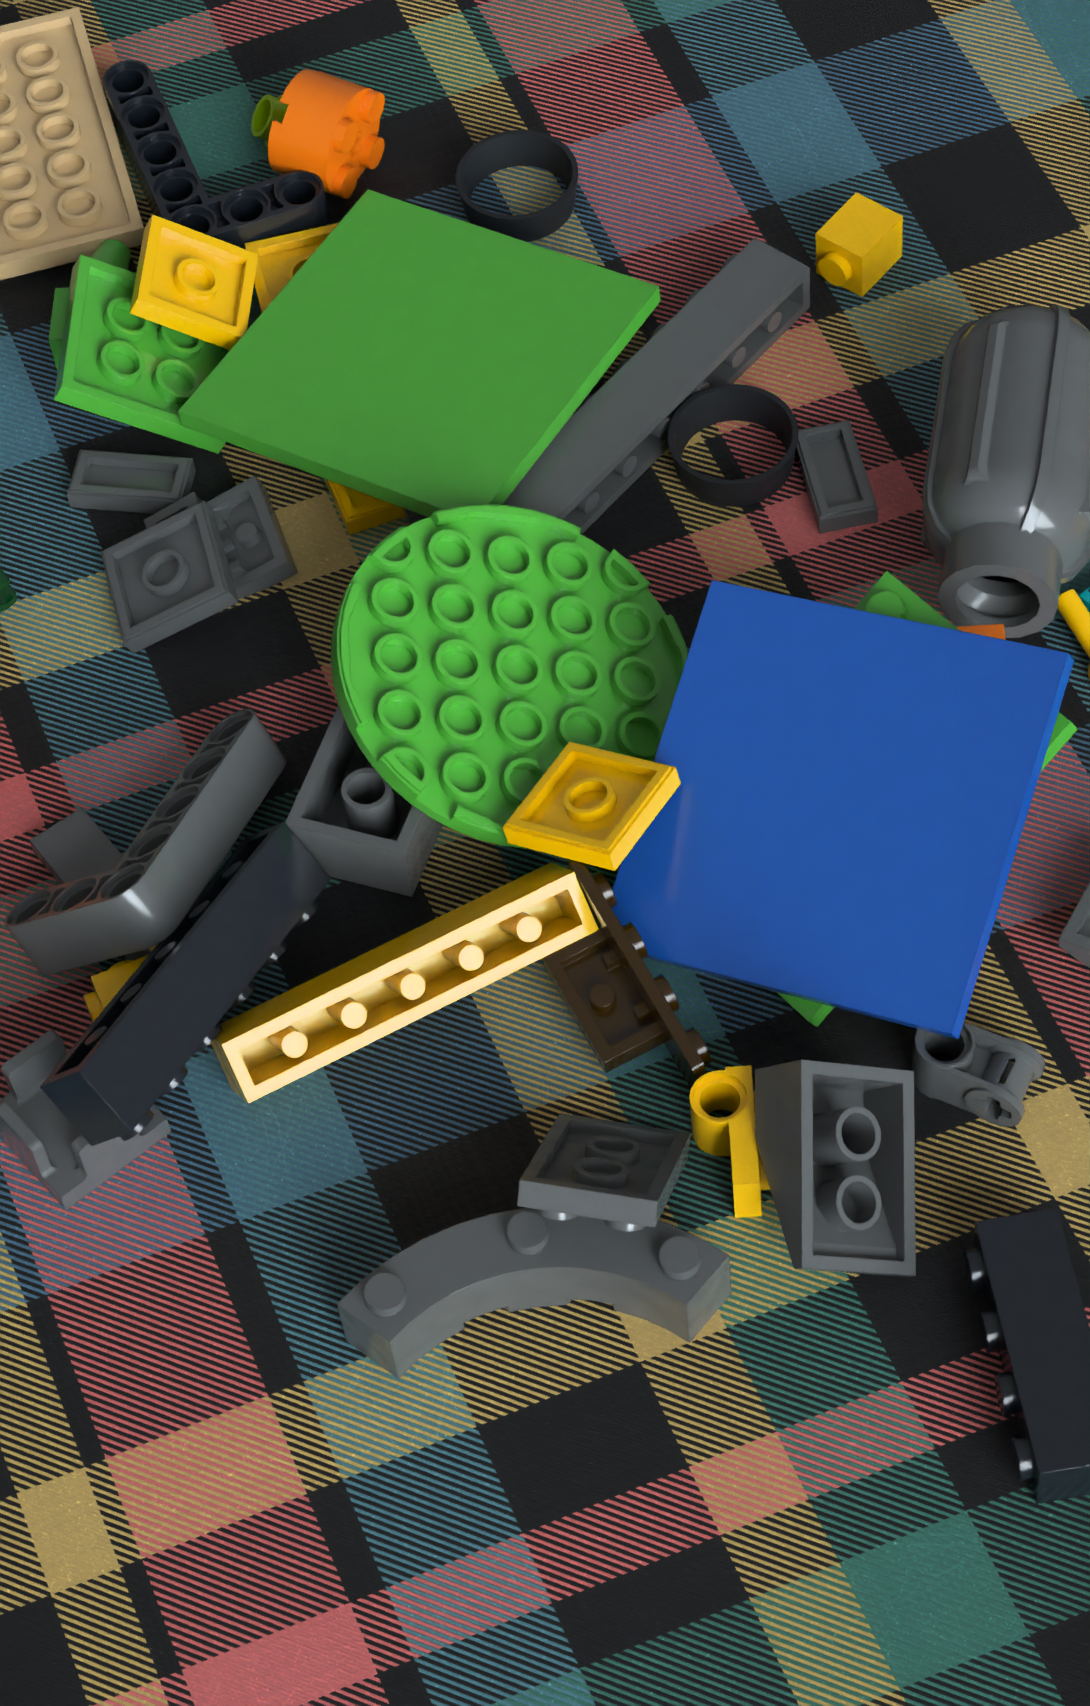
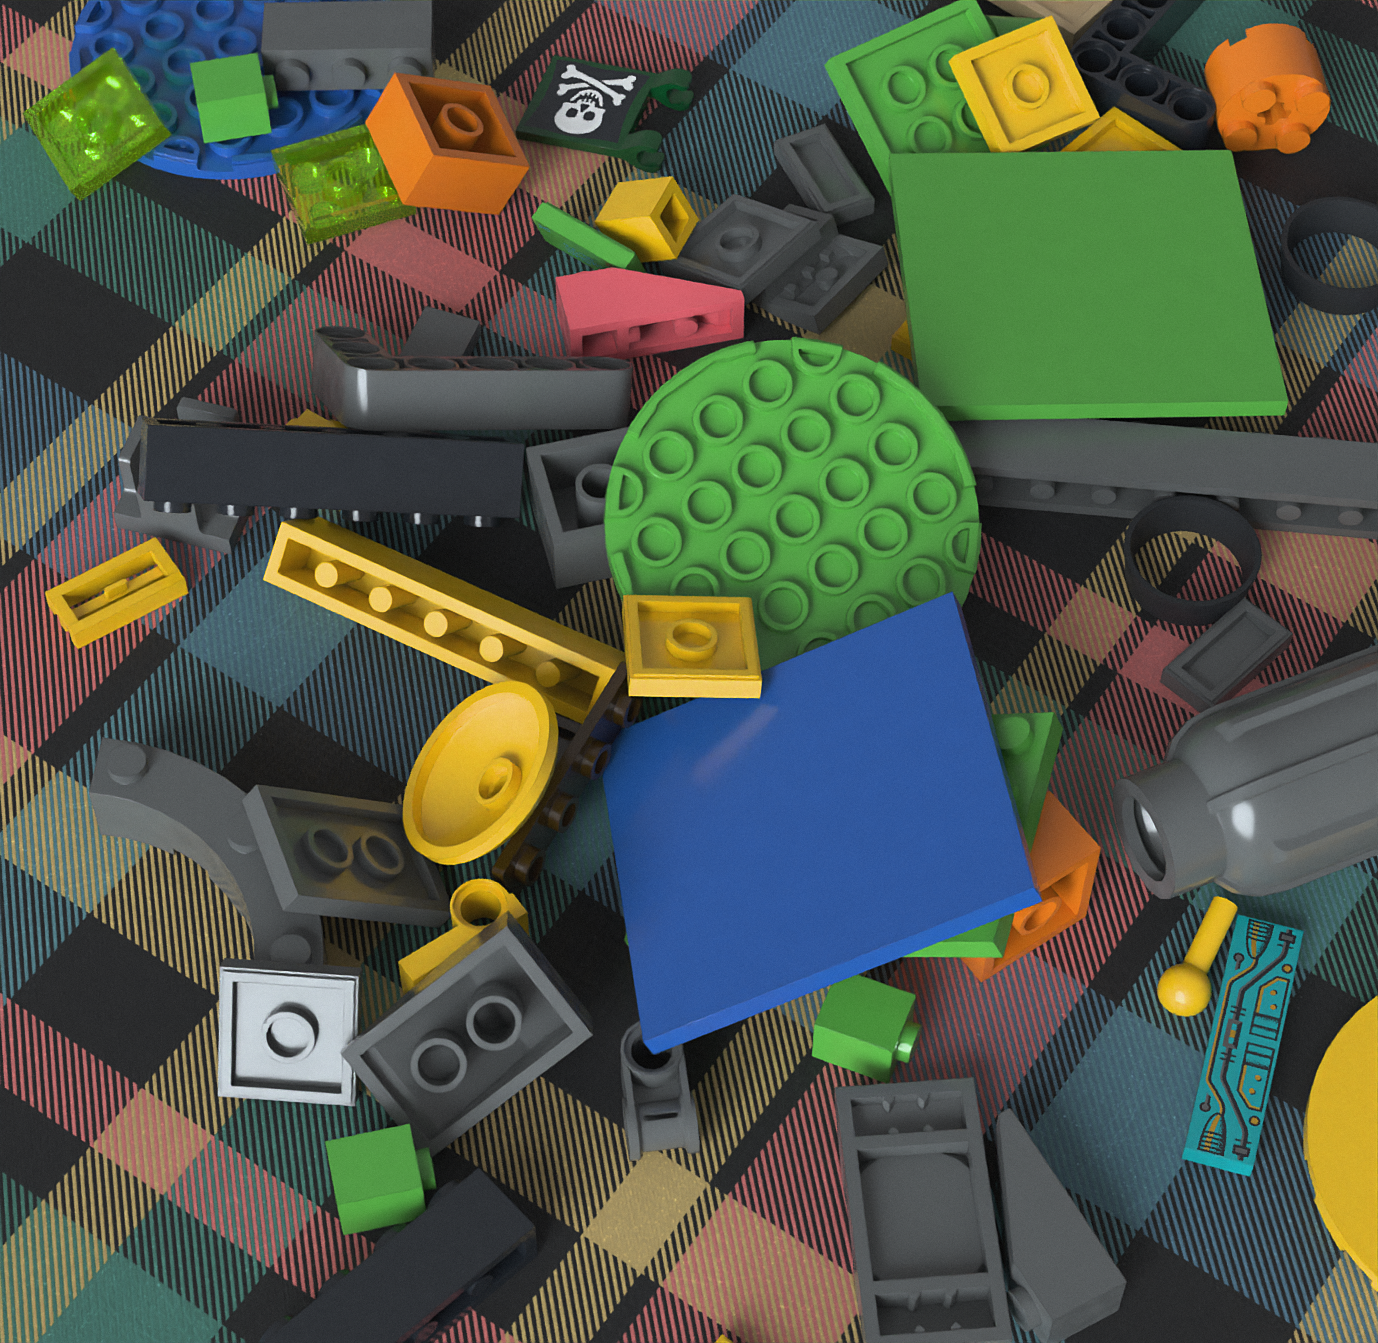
camera: 50 degrees right, 0 degrees up
(74, 682) = (583, 241): none -> bright green tile
(85, 625) = (648, 218): none -> yellow brick
(146, 1289) = (121, 599): none -> yellow tile
(175, 686) = (643, 313): none -> coral slope
(568, 1026) = (481, 773): none -> yellow dish
(741, 1304) = (287, 1031): none -> tile
(926, 1309) = (379, 1178): none -> bright green brick
(1029, 896) = (866, 1027): none -> bright green brick

